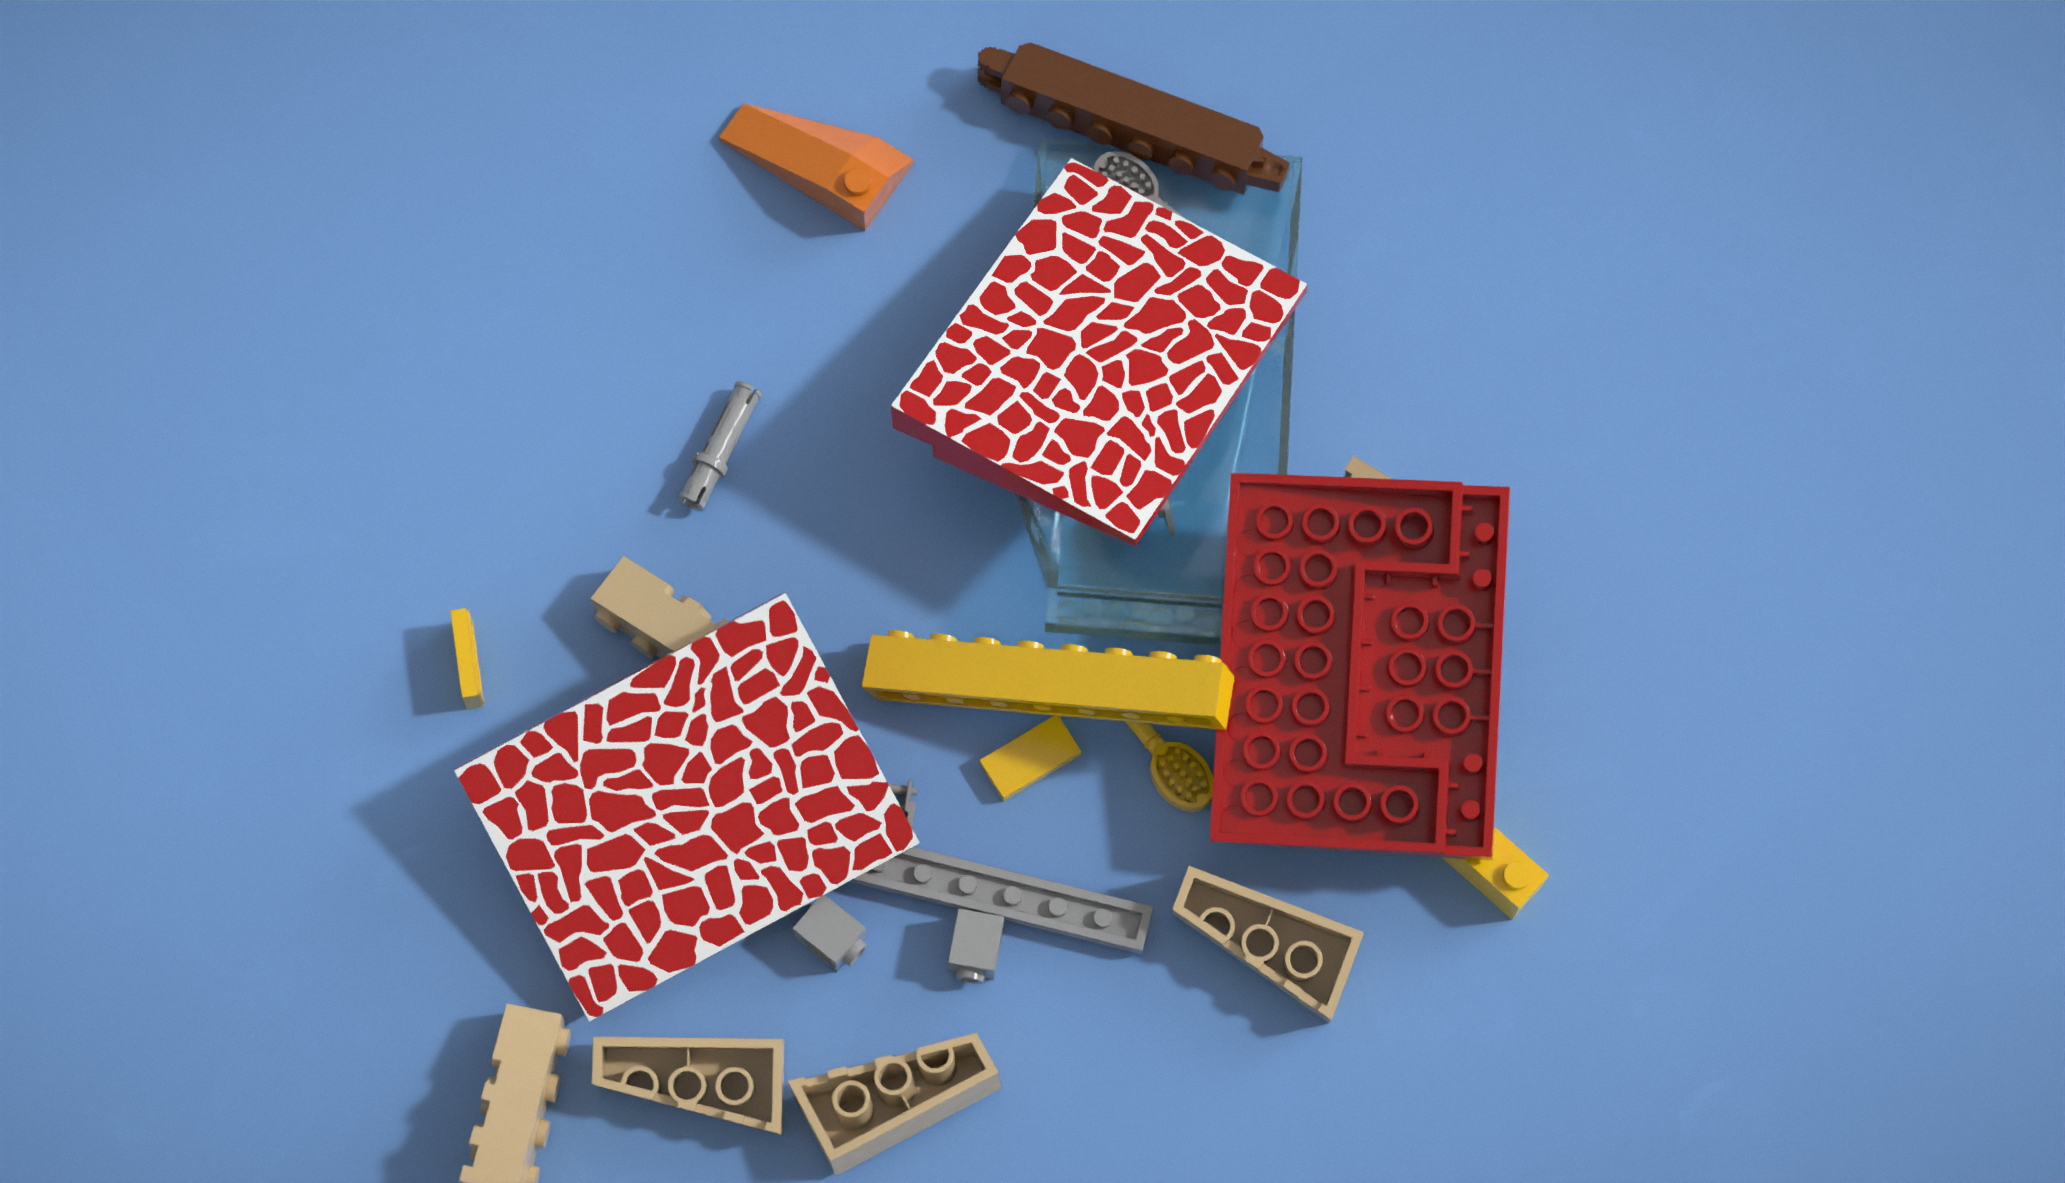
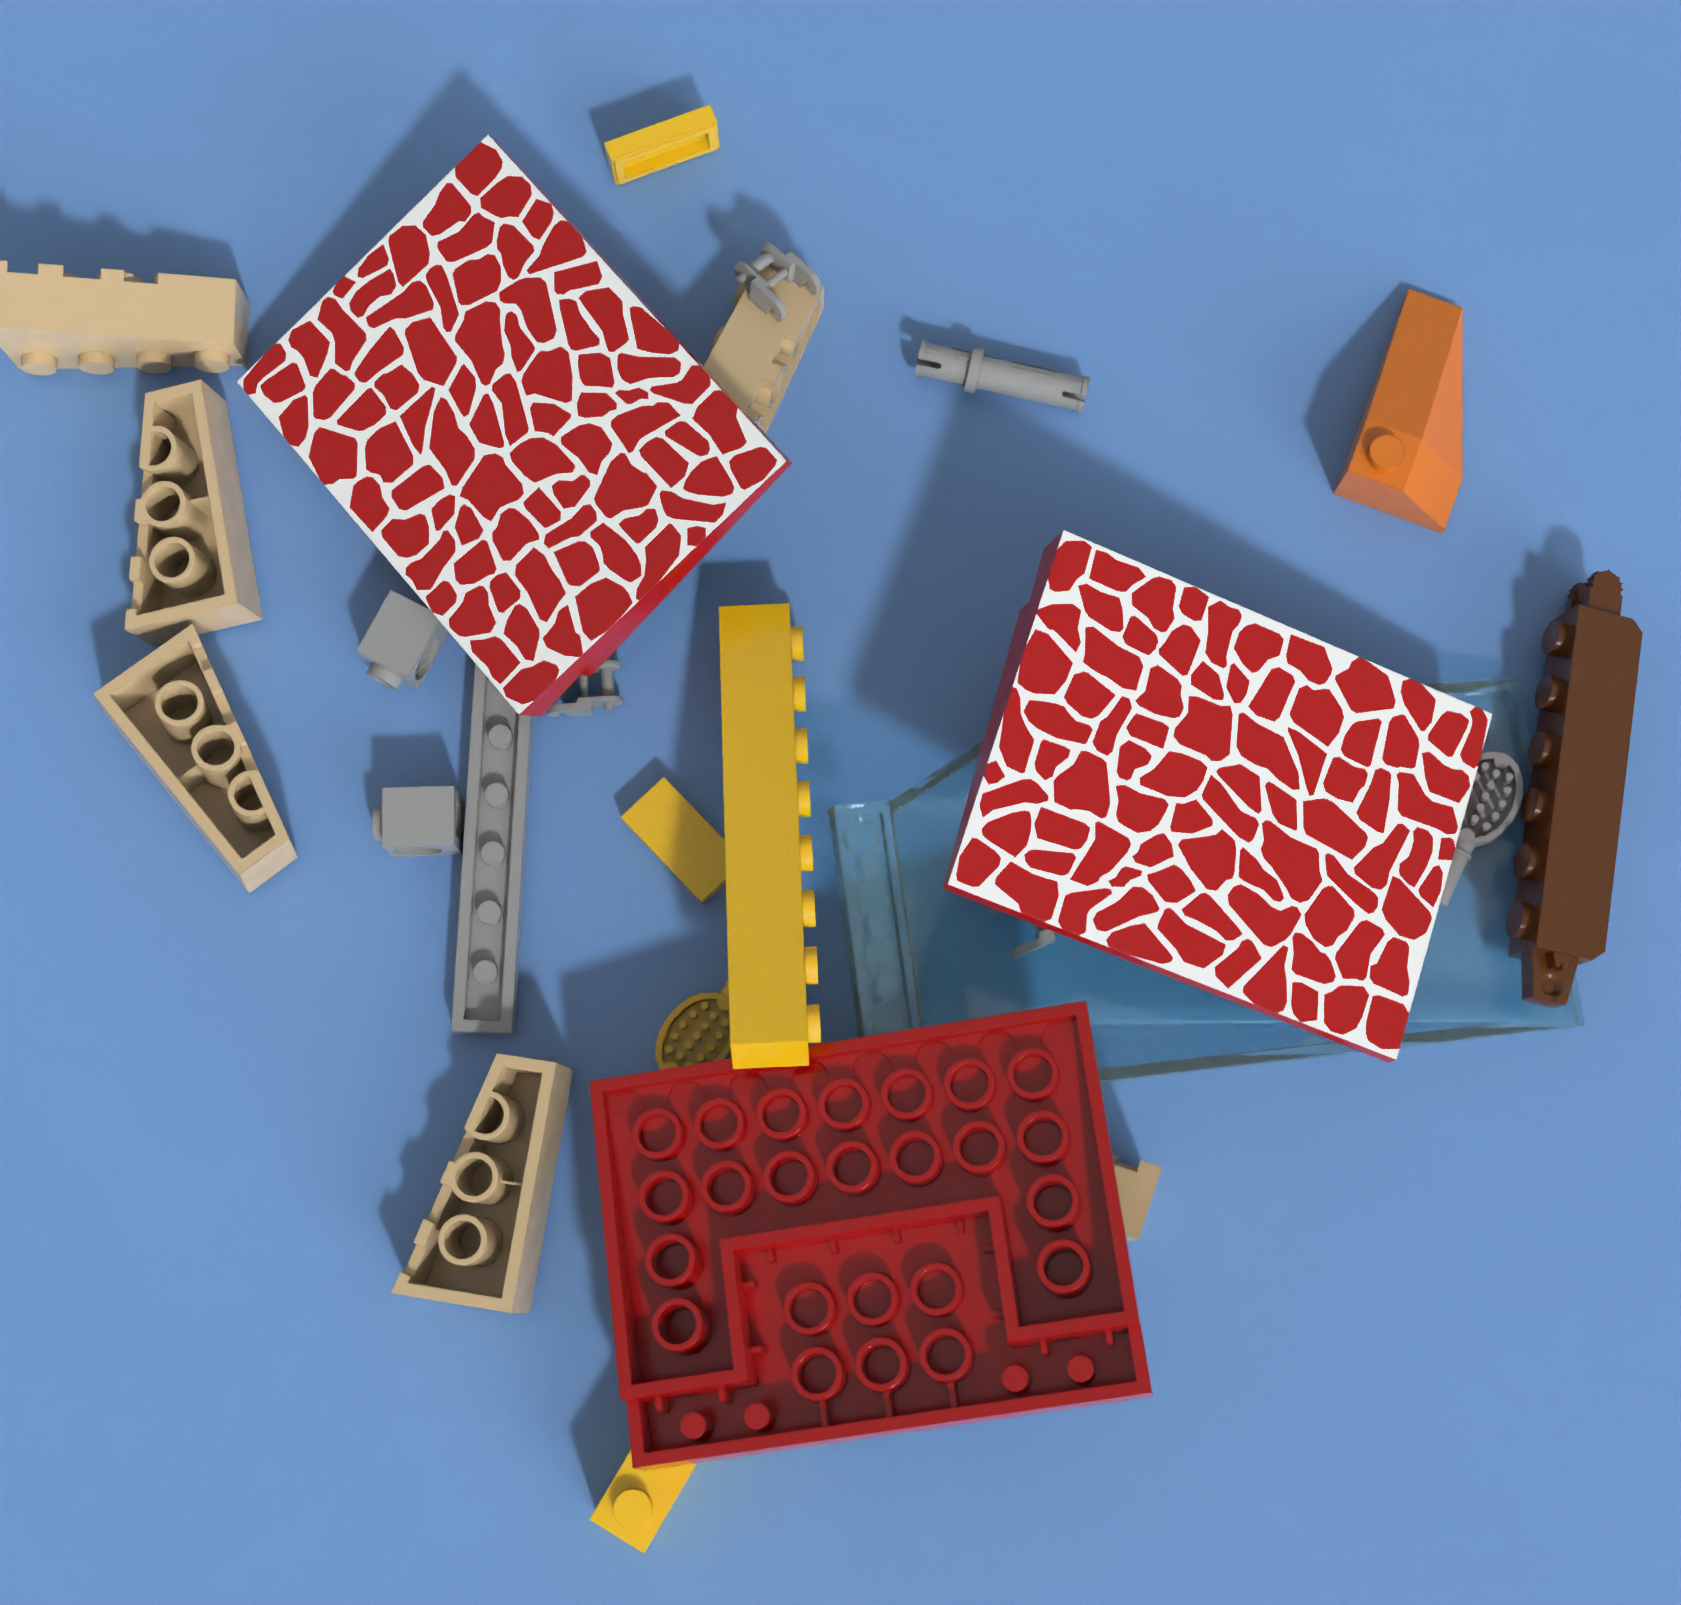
camera: 80 degrees right, 5 degrees up
(607, 577) = (787, 267): none -> light grey piece

